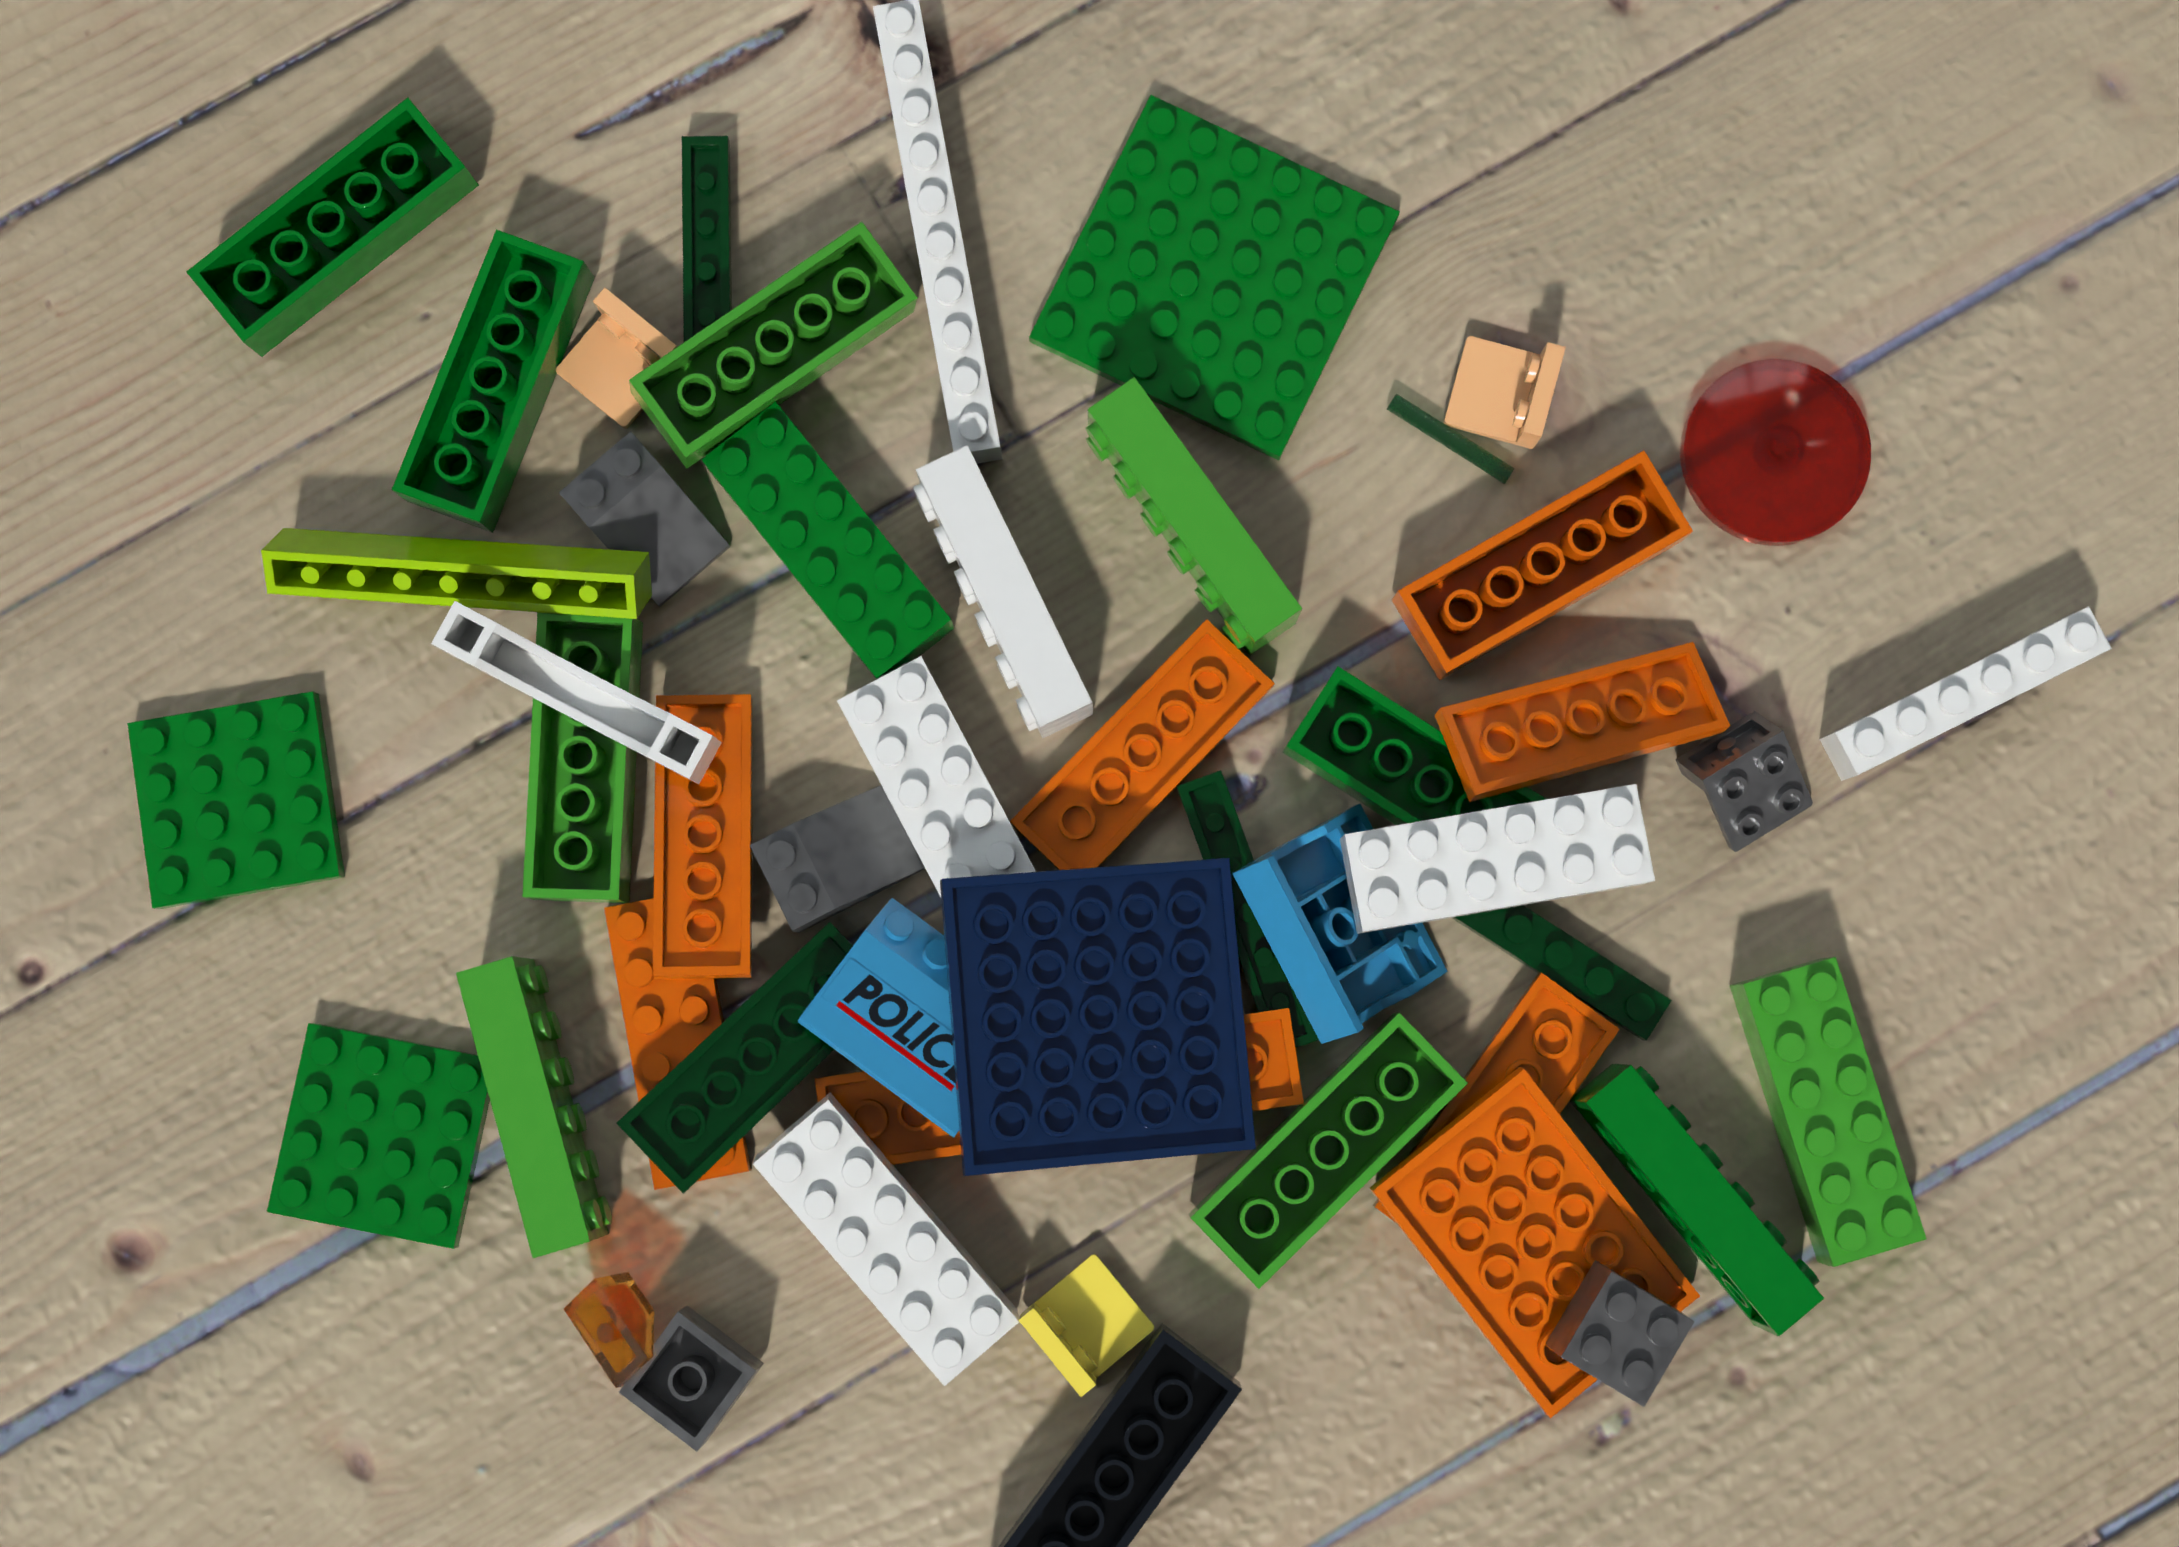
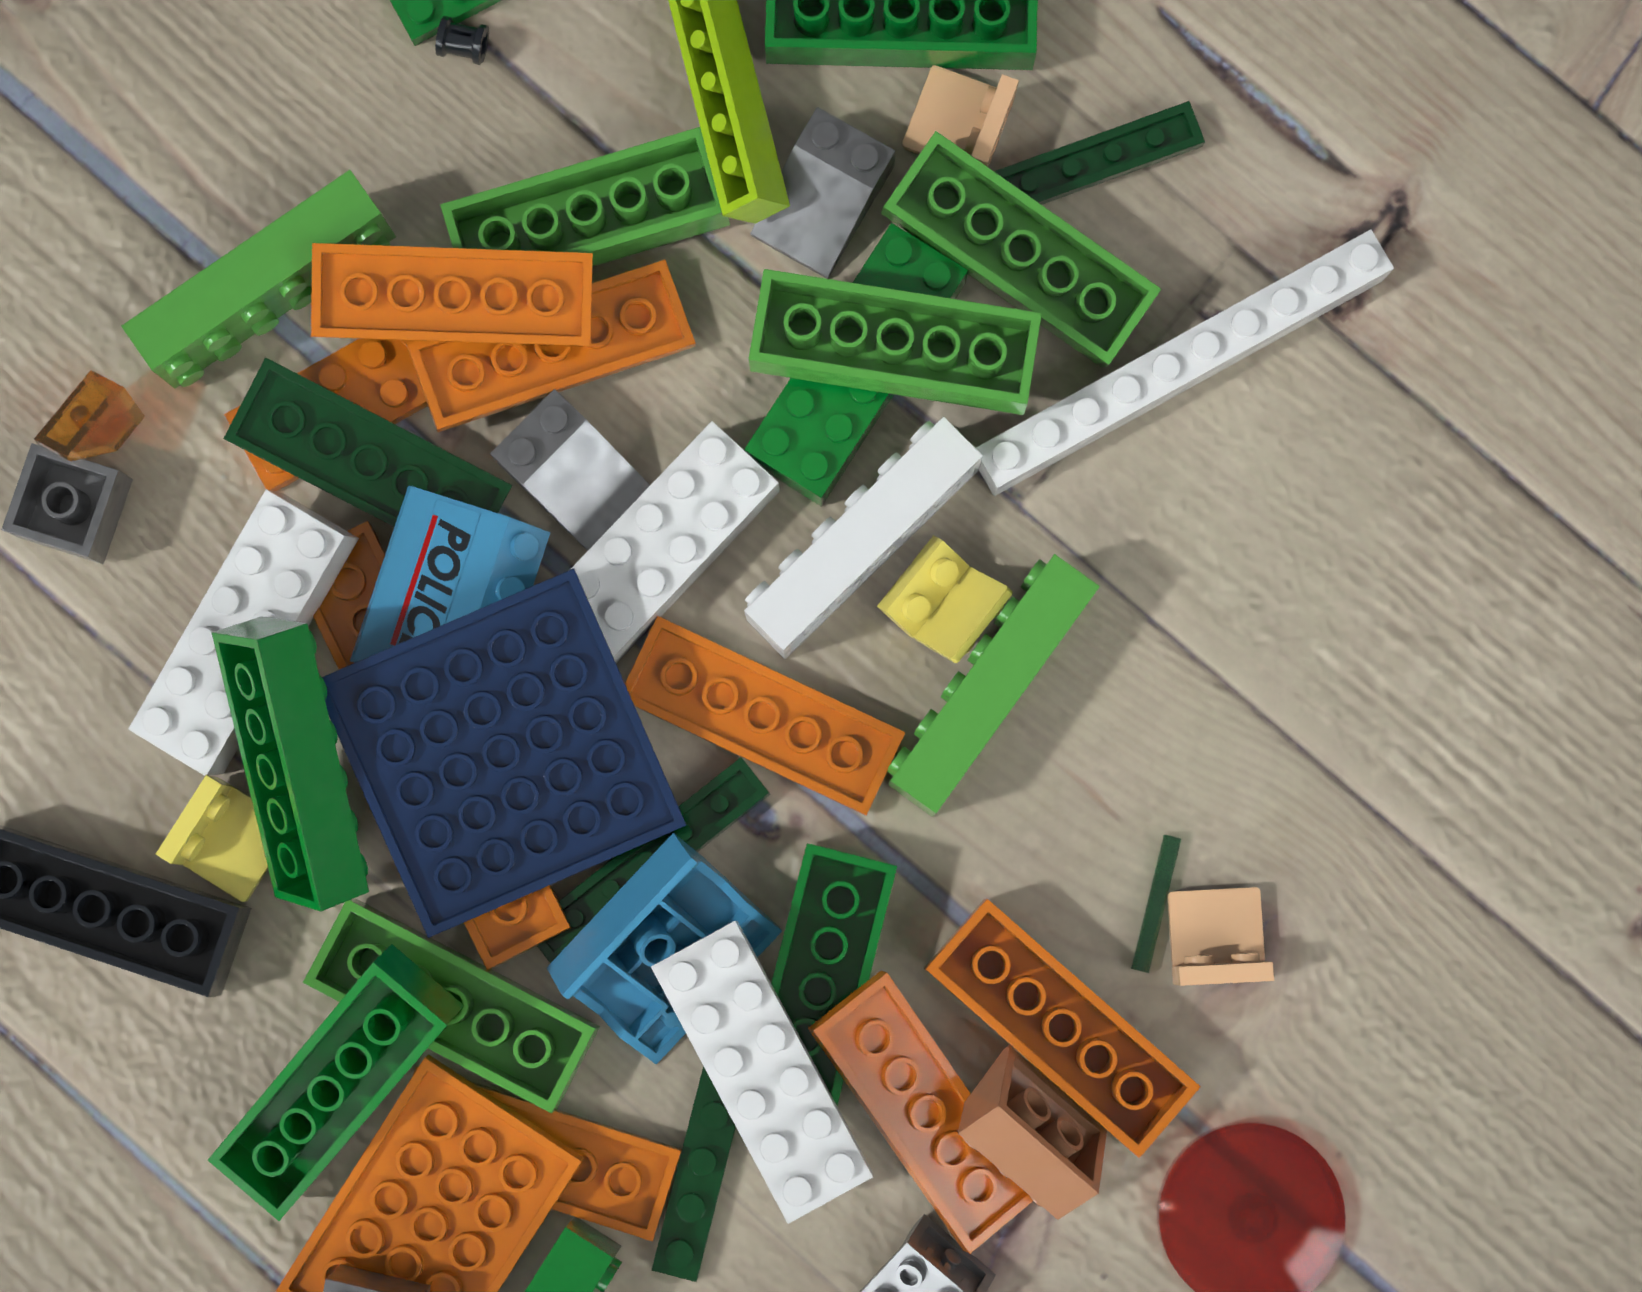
camera: 70 degrees right, 0 degrees up
(358, 825) = (462, 40): none -> black bush
(381, 1136) = (194, 159): green plate -> none
(576, 692) = (636, 185): white arch -> none
(620, 913) = (451, 294): none -> orange plate
(825, 490) = (894, 341): none -> bright green brick
(1037, 1225) = (291, 761): none -> green brick
(1093, 536) = (944, 601): none -> light yellow bracket
(1214, 277) = (1233, 633): green plate -> none
(1370, 1285) = (335, 1081): none -> green brick
(1638, 623) = (1035, 1134): none -> nougat slope

